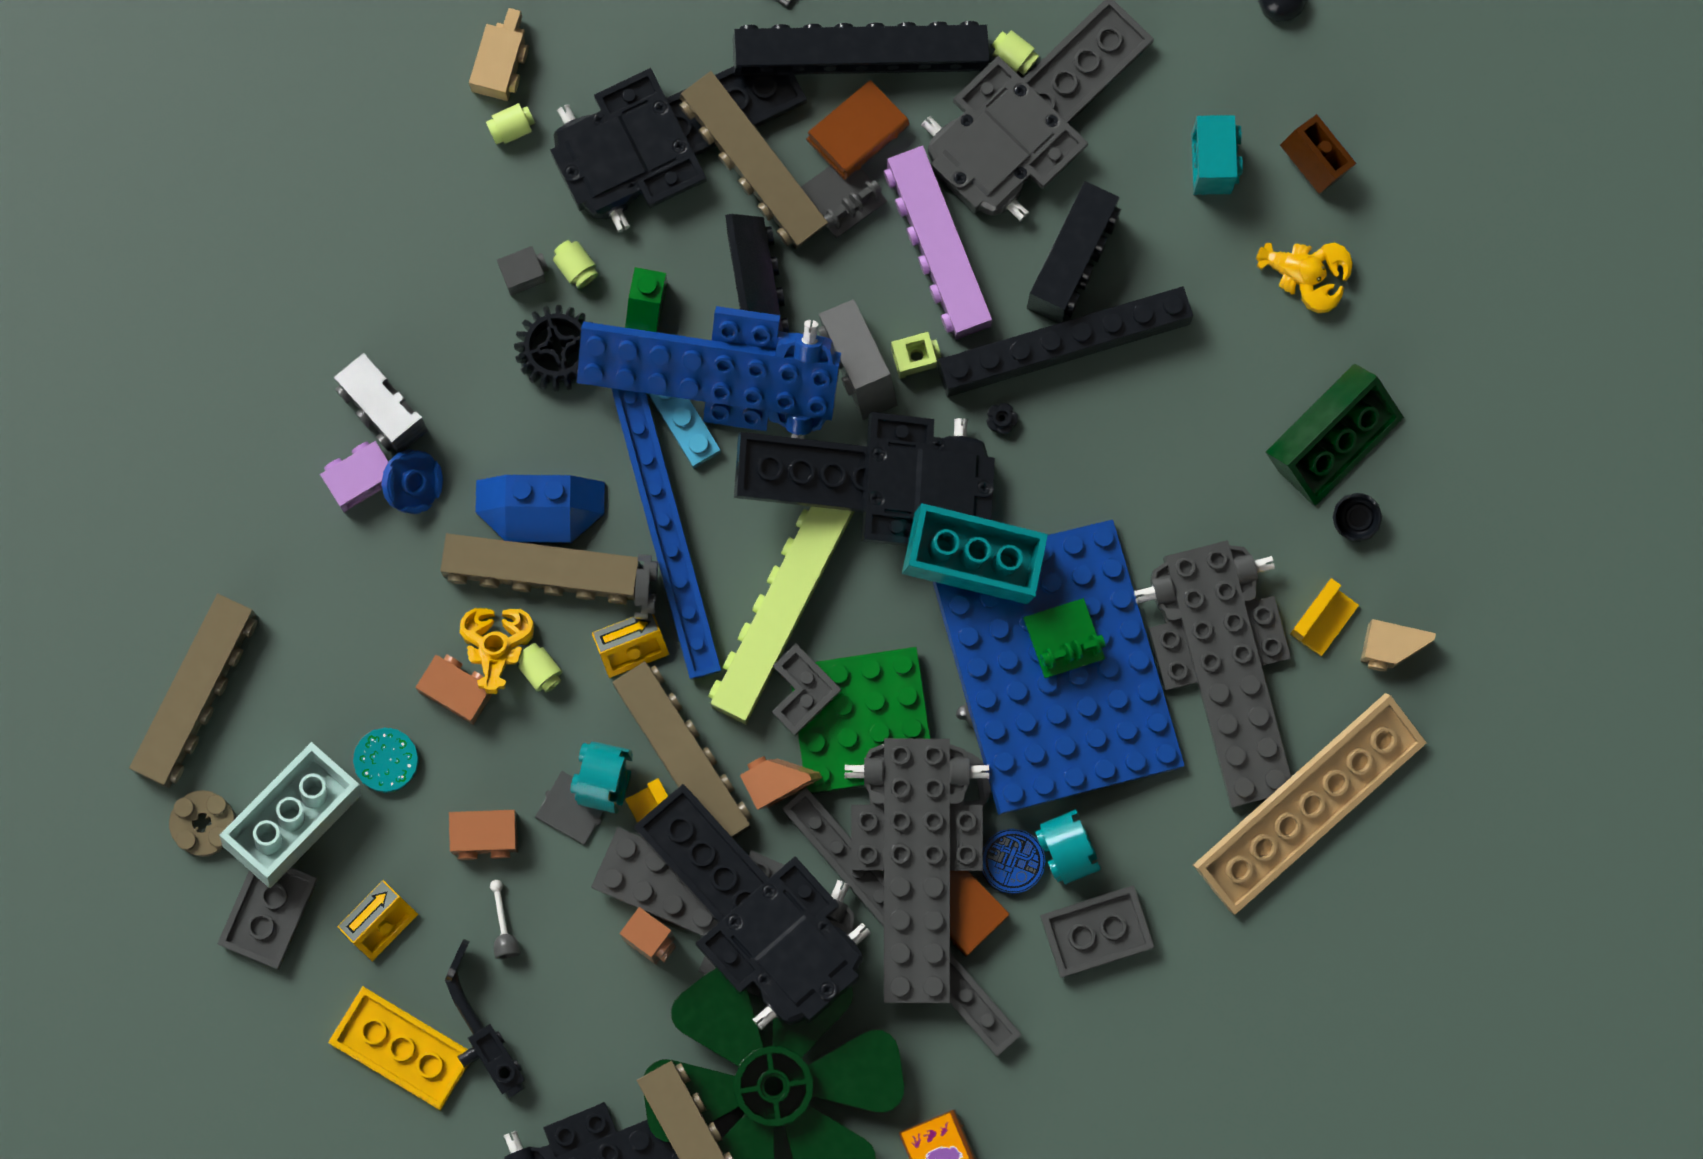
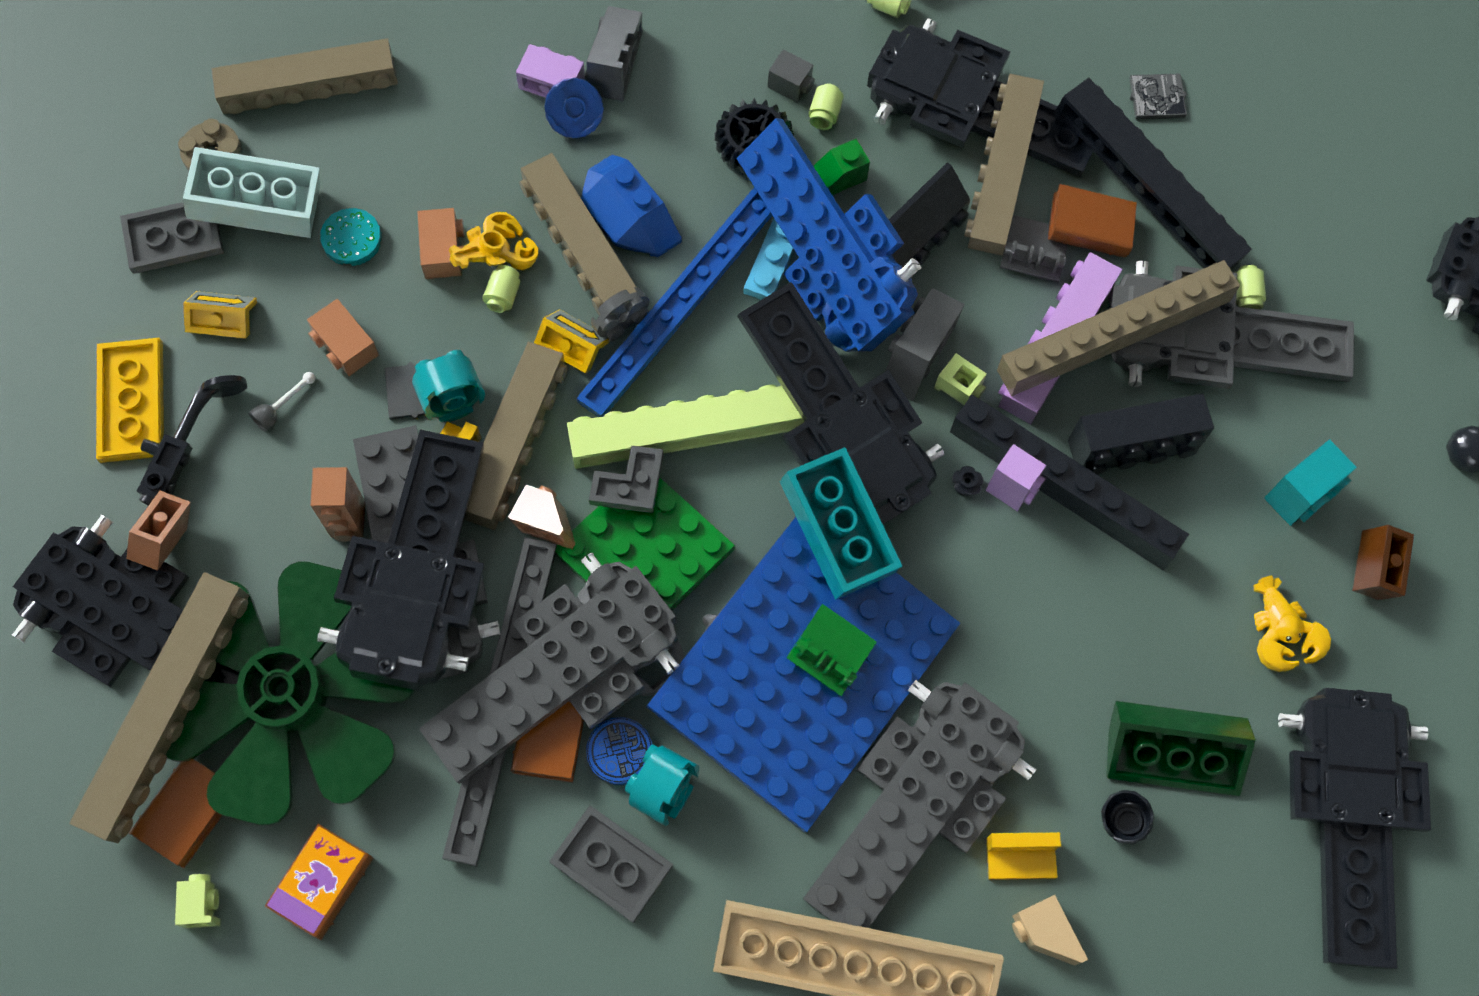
camera: 50 degrees right, 10 degrees down
(555, 1097) = (158, 530): none -> nougat brick
(976, 198) = (1117, 328): none -> dark tan brick
(1034, 381) = (1017, 478): none -> lavender brick
(1466, 329) = (1359, 789): none -> black piece

